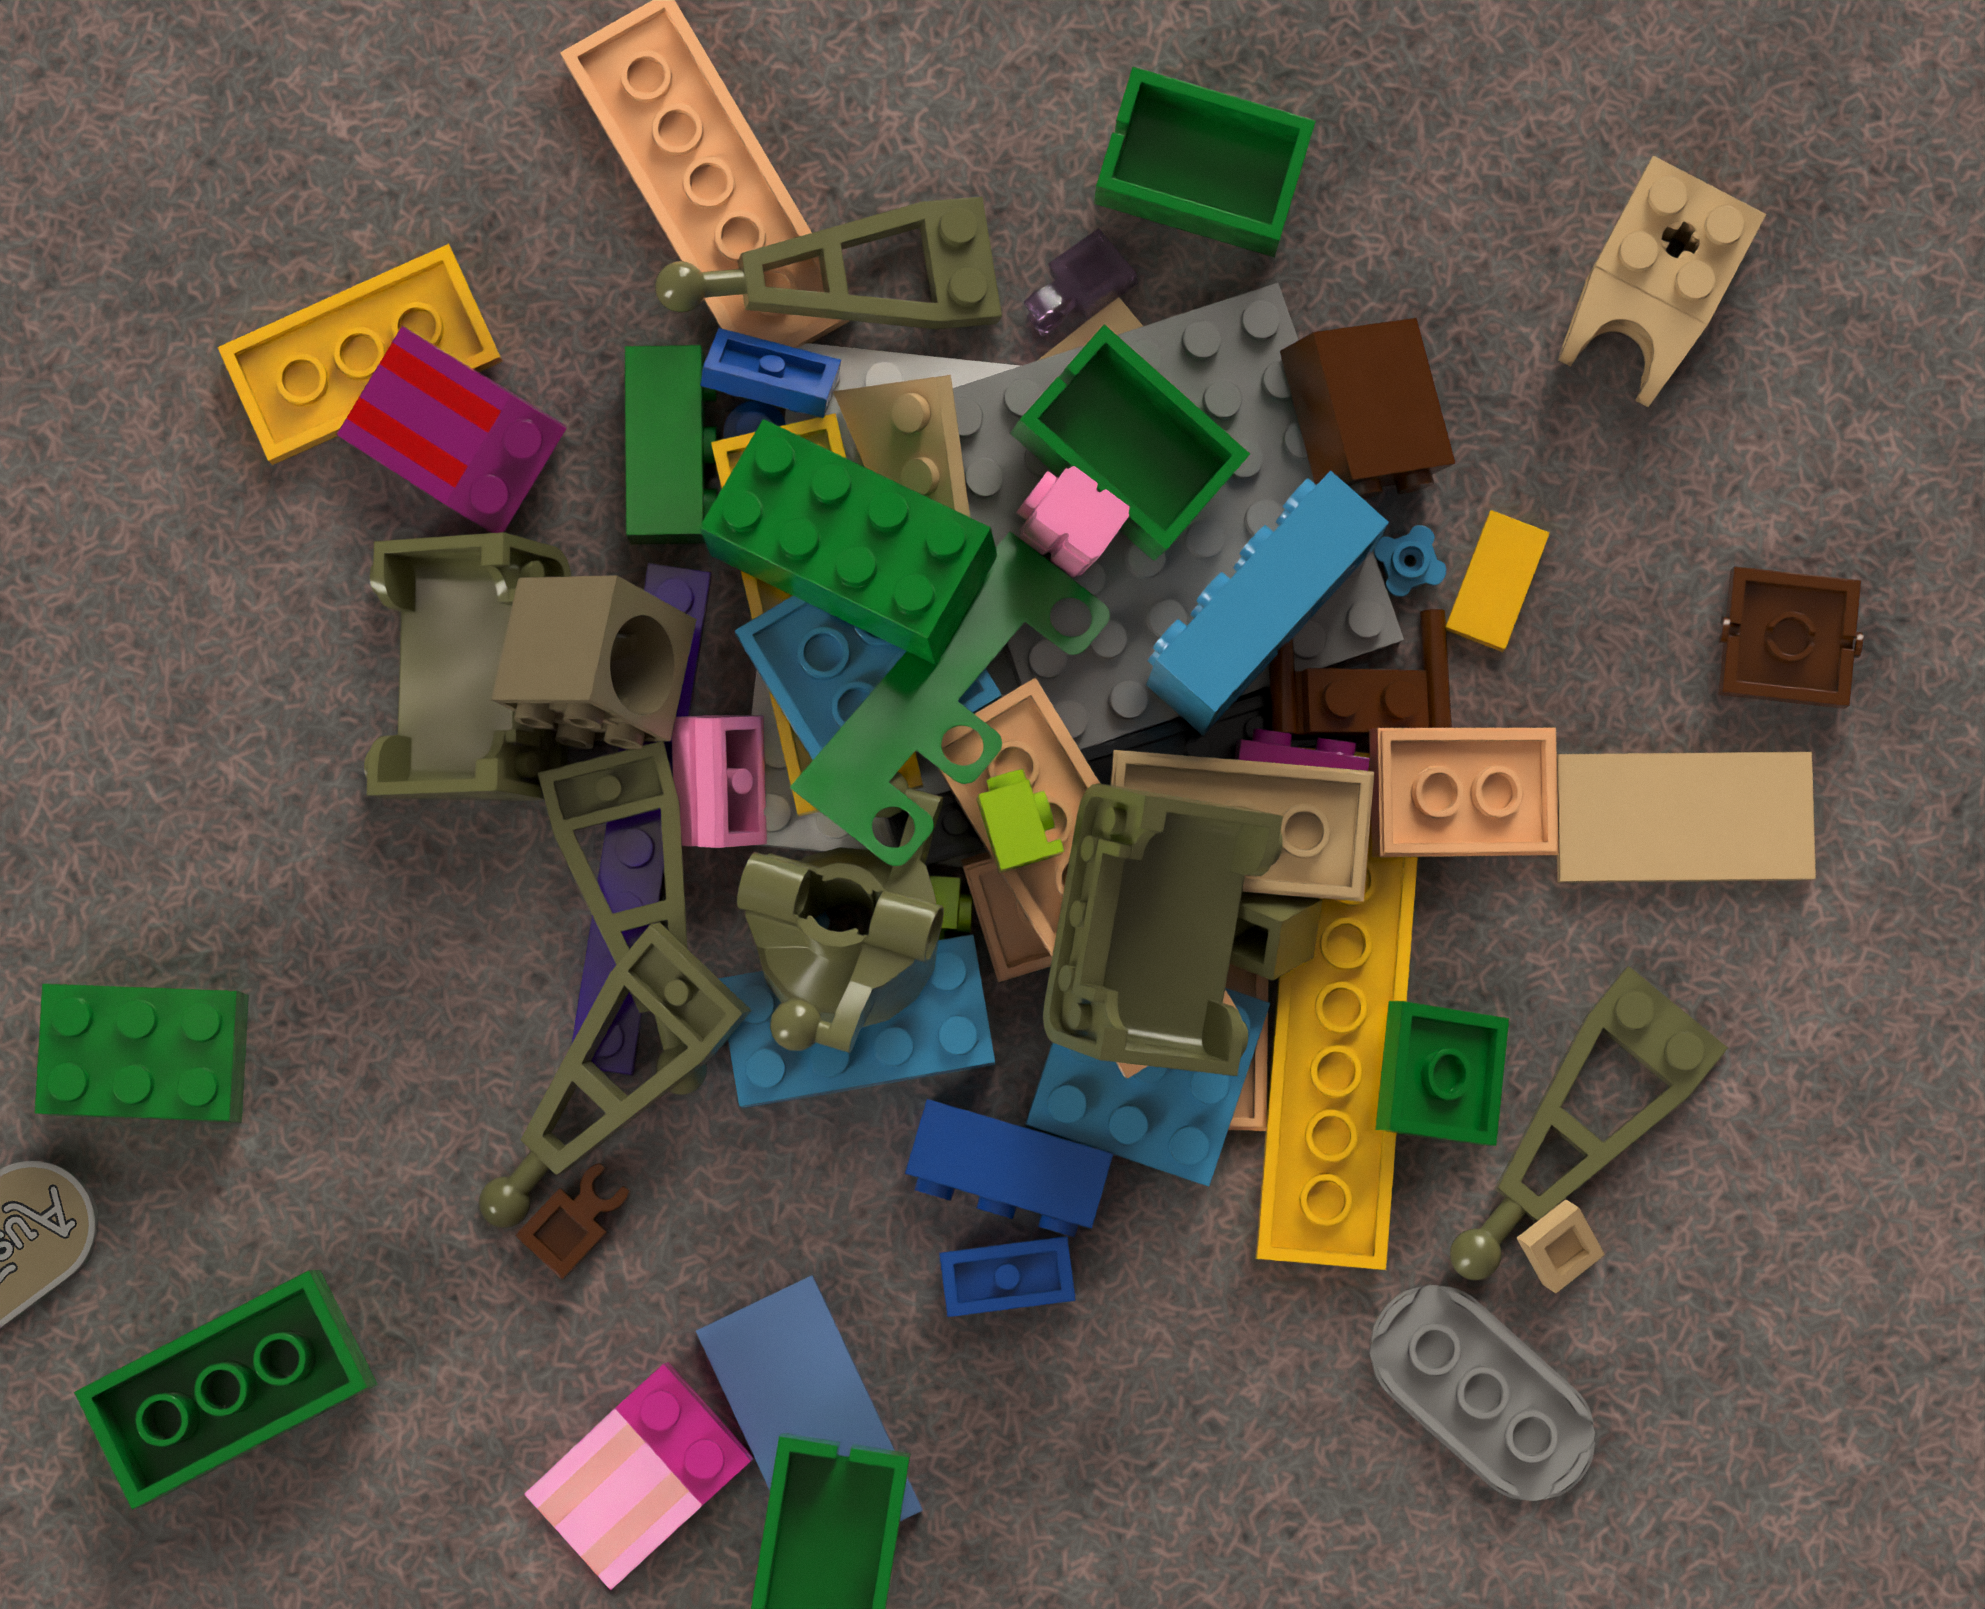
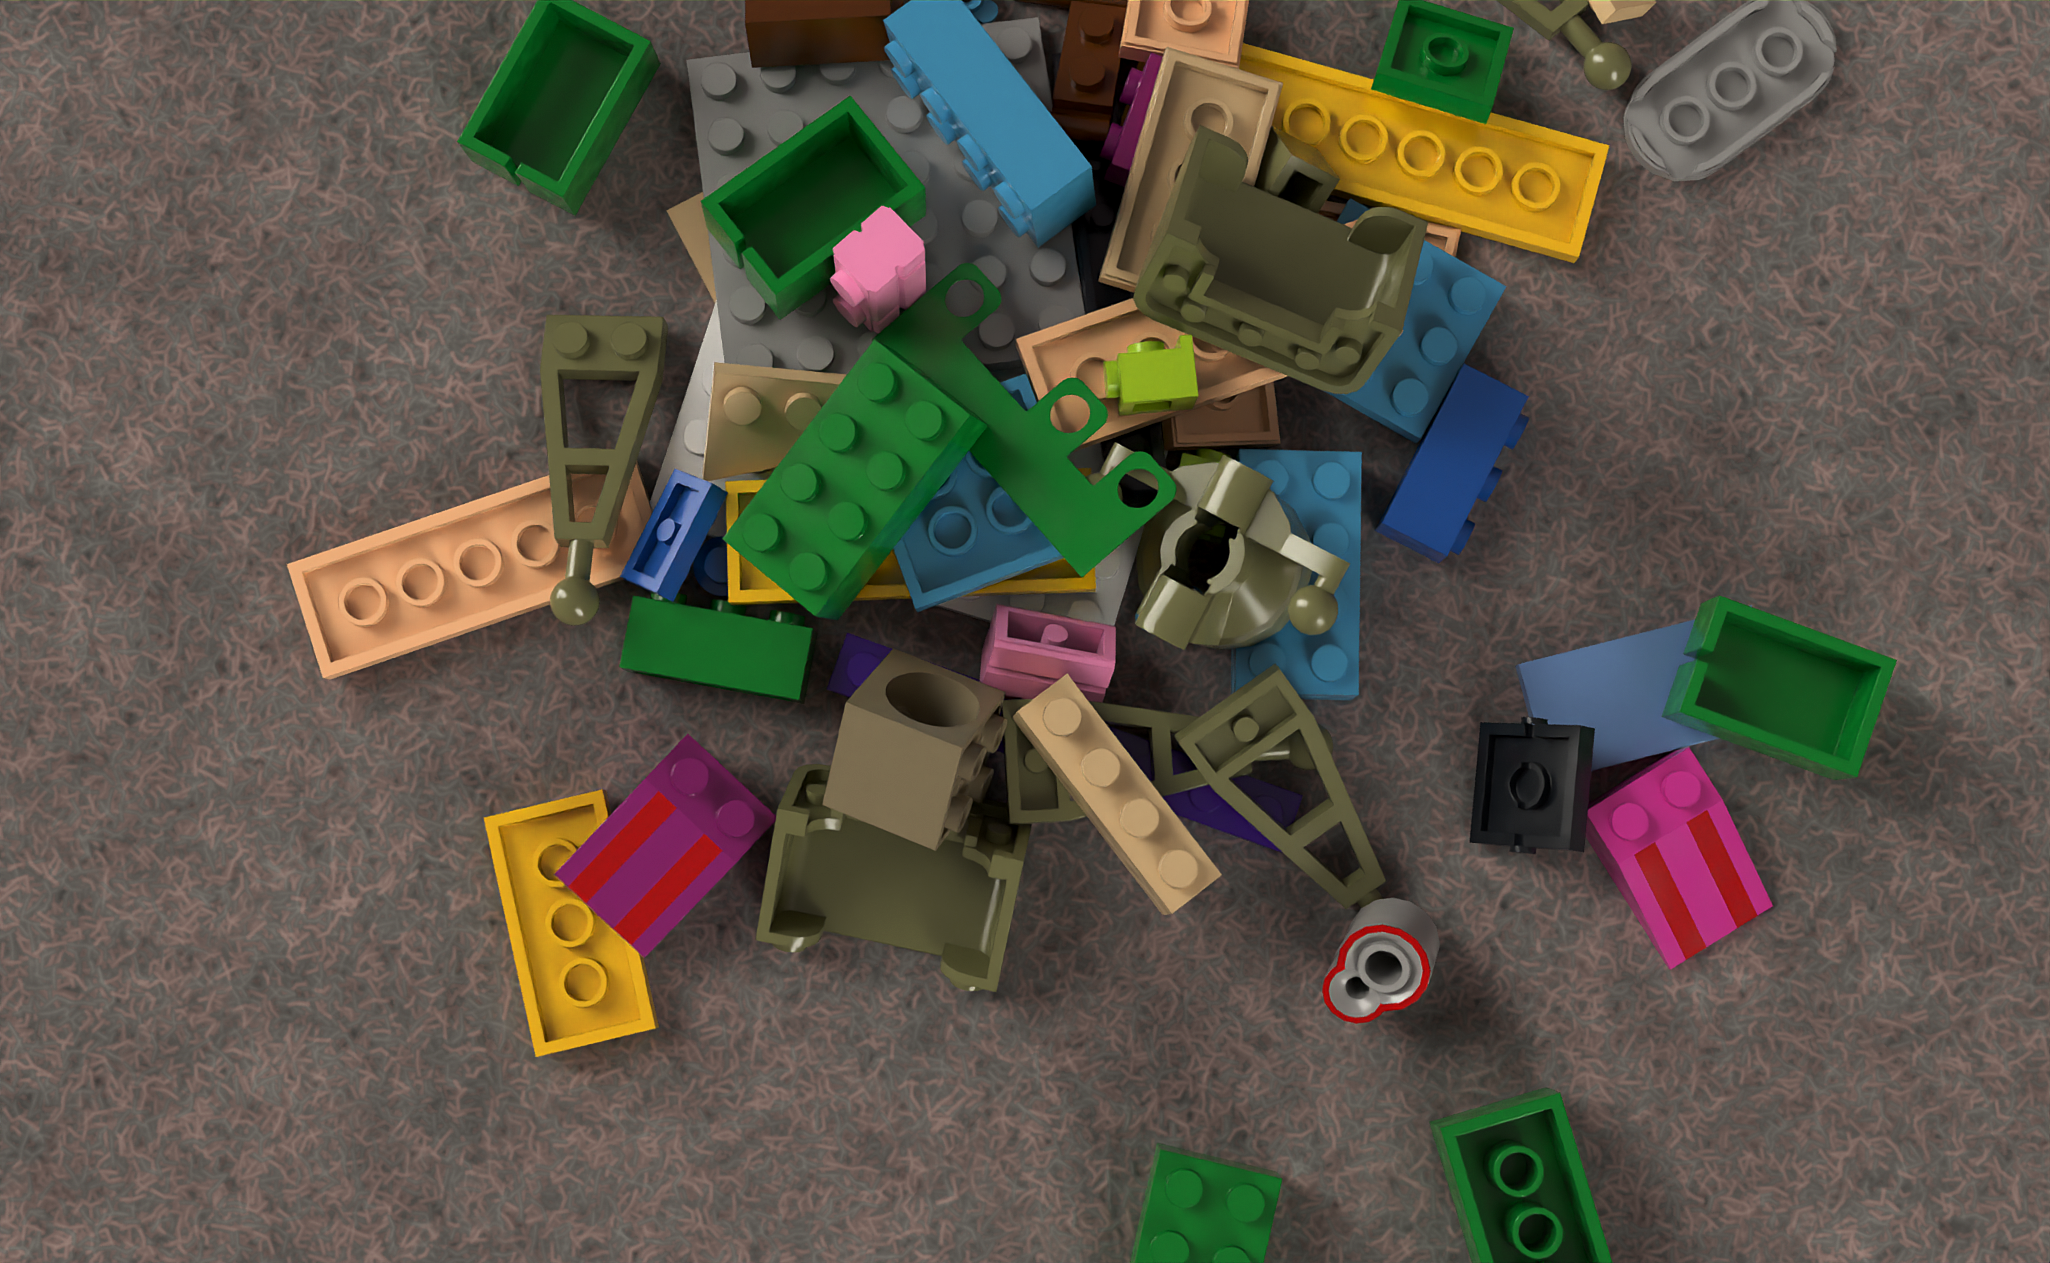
camera: 75 degrees left, 0 degrees up
(471, 1183) = (1382, 961): none -> light grey piece
(566, 1227) = (1433, 880): reddish brown plate -> none
(581, 872) = (1116, 795): none -> tan brick
(681, 1307) = (1532, 785): none -> black plate
(1007, 1276) = (1552, 486): blue plate -> none
(1084, 277) = (642, 235): plate -> none

